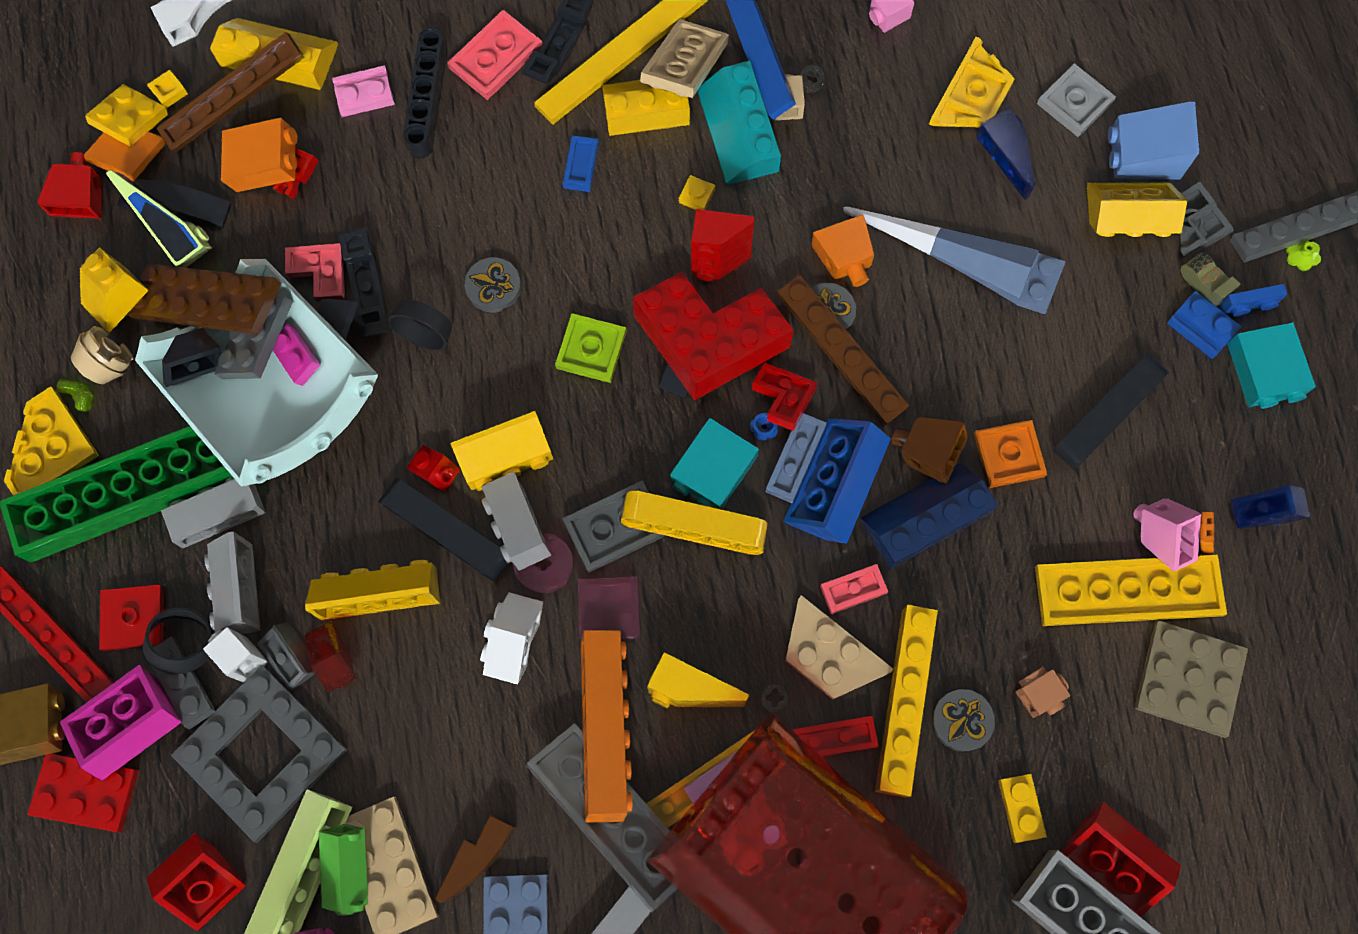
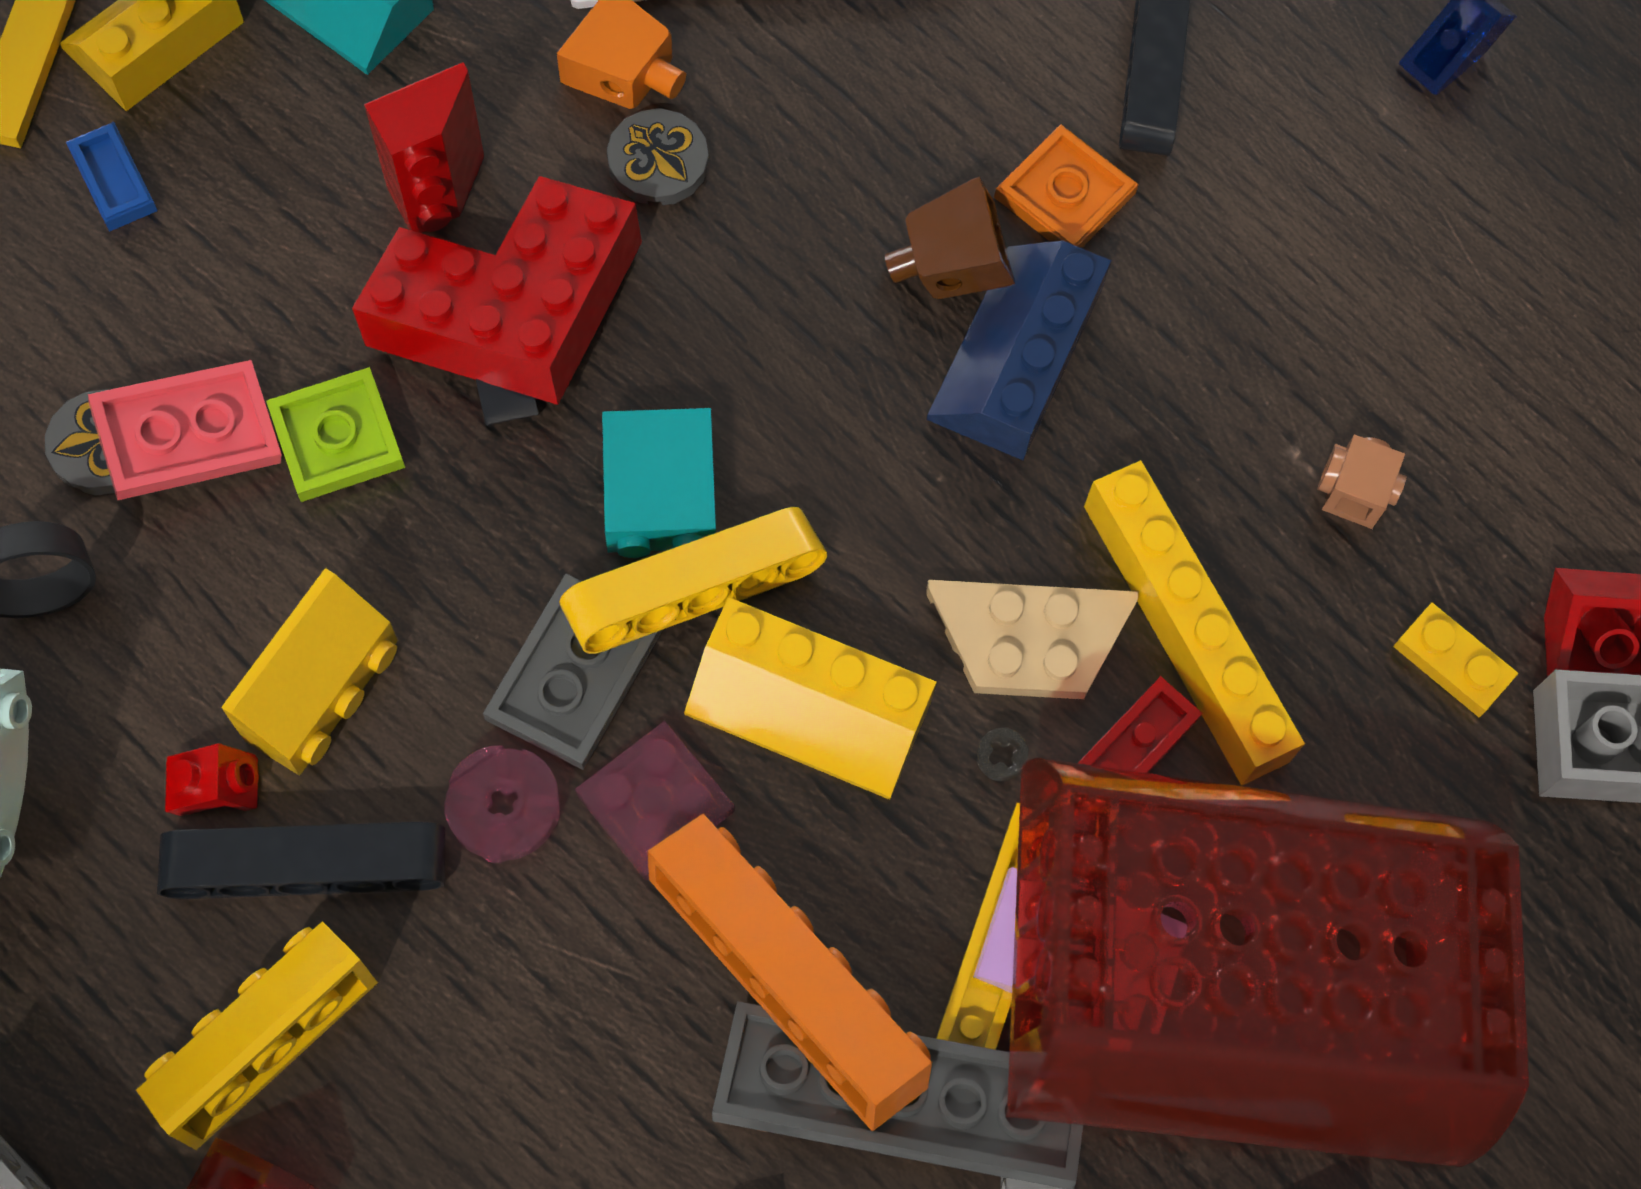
camera: 45 degrees left, 5 degrees down
(510, 637) = (537, 940): white brick -> none
(514, 522) = (412, 766): light grey brick -> none
(528, 303) = (184, 429): none -> coral plate
(687, 686) = (865, 820): yellow slope -> none
(696, 193) = (332, 112): yellow plate -> none
(706, 612) = (809, 698): none -> yellow slope
(763, 434) = (689, 365): blue plate -> none
(790, 392) = (689, 298): red plate -> none
(795, 458) = (771, 391): sand blue plate -> none
(838, 479) = (855, 380): blue slope -> none
(842, 350) = (722, 195): reddish brown plate -> none
(854, 589) = (996, 519): coral plate -> none
(963, 720) = (1285, 596): tile -> none
(1128, 591) = (1364, 267): yellow plate -> none
(1170, 532) = (1361, 147): bright pink torso -> none
(1191, 679) = (1531, 330): dark tan plate -> none
(1207, 533) = (1406, 112): orange tile -> none

